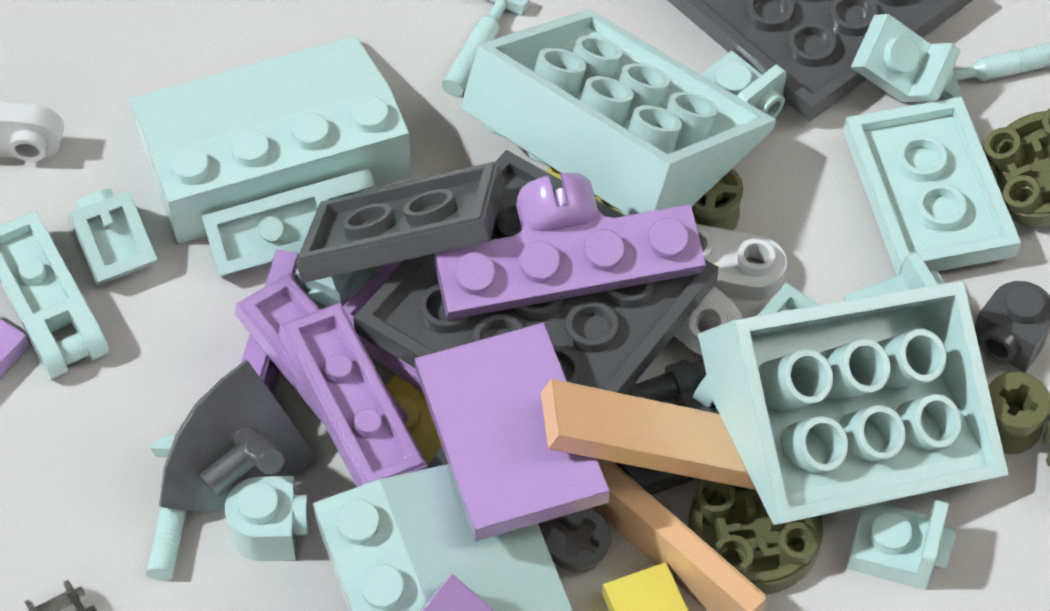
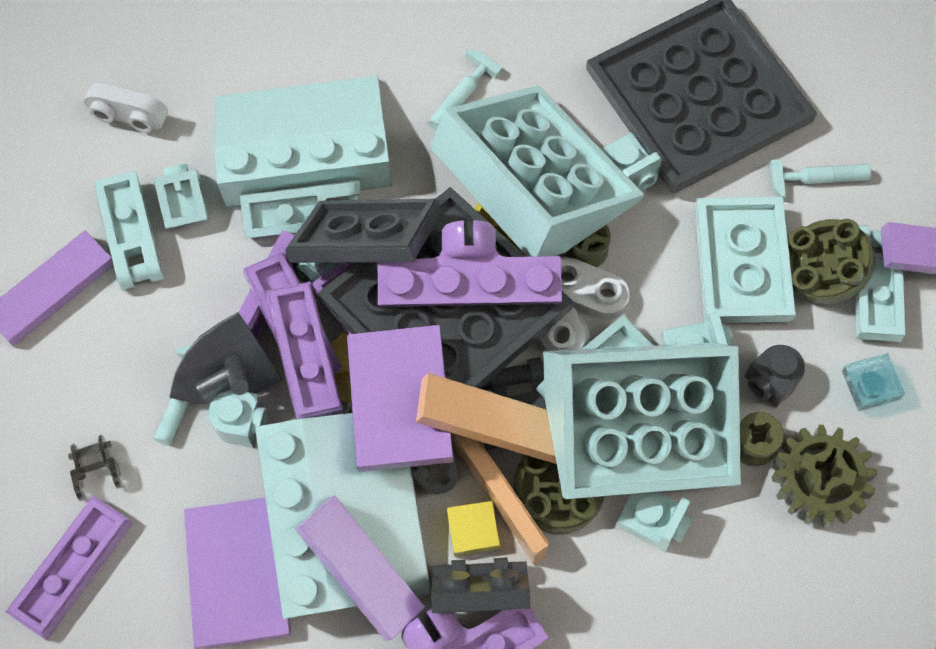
camera: 15 degrees right, 10 degrees up
(904, 61) = (748, 163): light aqua bracket -> none

